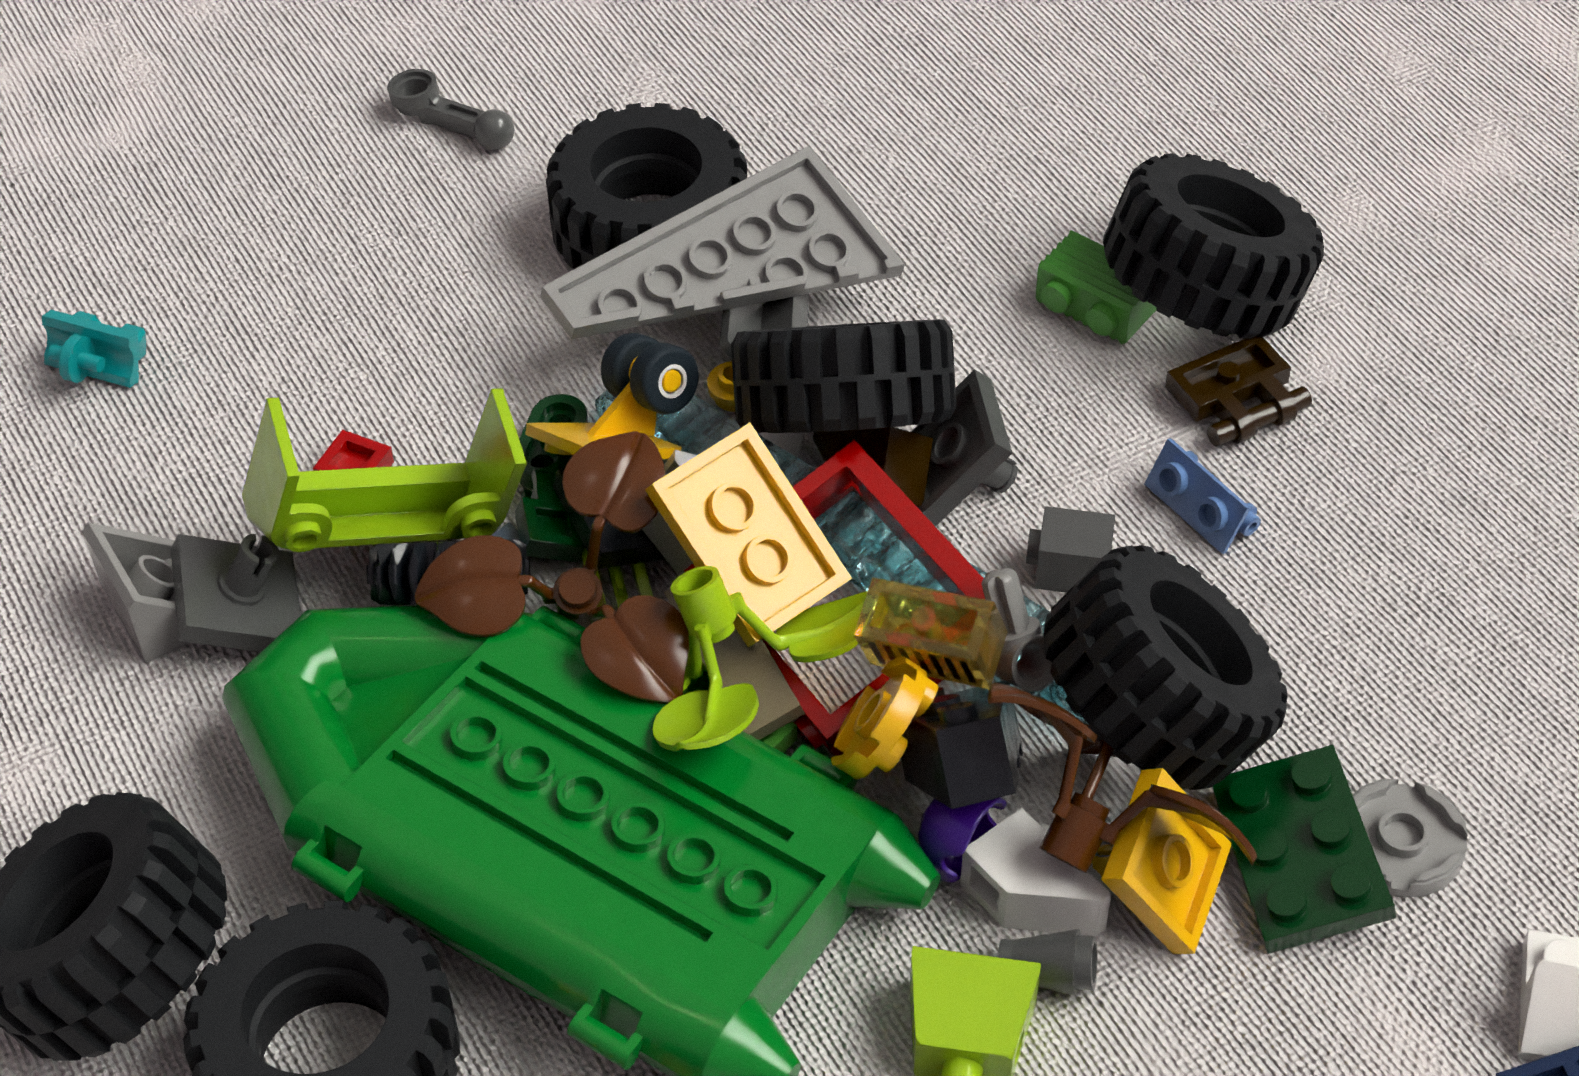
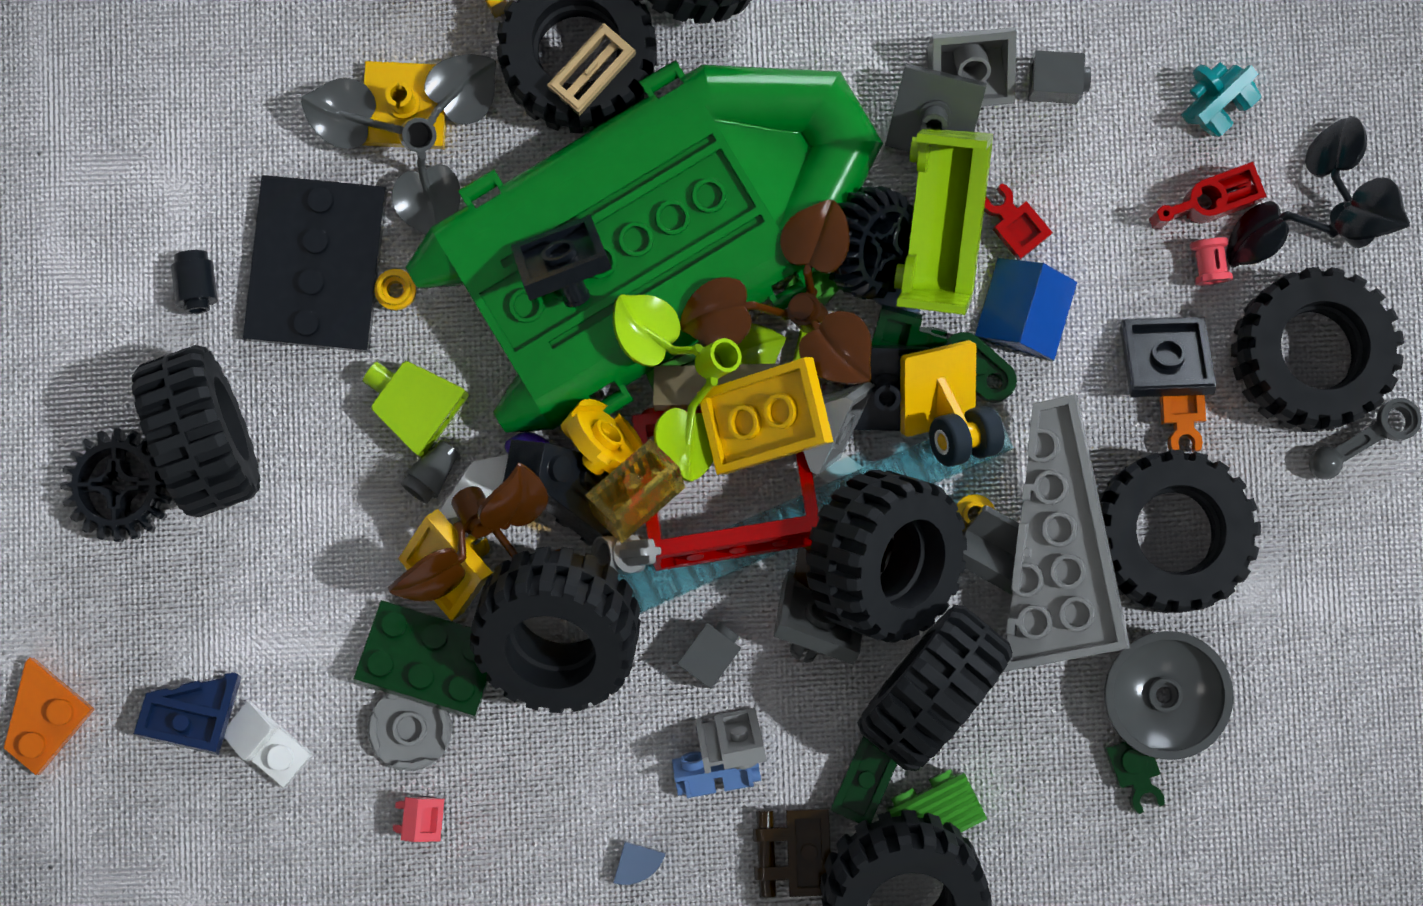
camera: 115 degrees right, 35 degrees up
(115, 228) = (1369, 213): none -> black plant
(131, 496) = (1058, 77): none -> dark grey brick
(226, 311) = (1217, 189): none -> red piece
(307, 288) = (1211, 261): none -> coral bush
(347, 967) = (606, 77): none -> tan tile
(379, 202) = (1365, 326): none -> black tyre
(436, 426) = (1026, 307): none -> blue slope
(444, 281) = (1167, 357): none -> black plate
(501, 256) = (1183, 413): none -> orange plate
(664, 828) = (561, 261): none -> black tile
(849, 130) = (1197, 702): none -> dark grey dish
(925, 166) = (1135, 770): none -> dark green plate
(983, 239) = (935, 688): none -> black tyre
(1108, 360) = (863, 783): none -> dark green plate
(1161, 473) = (731, 740): none -> light grey plate
(1370, 529) = (637, 863): none -> sand blue tile
(1502, 762) = (420, 819): none -> coral tile

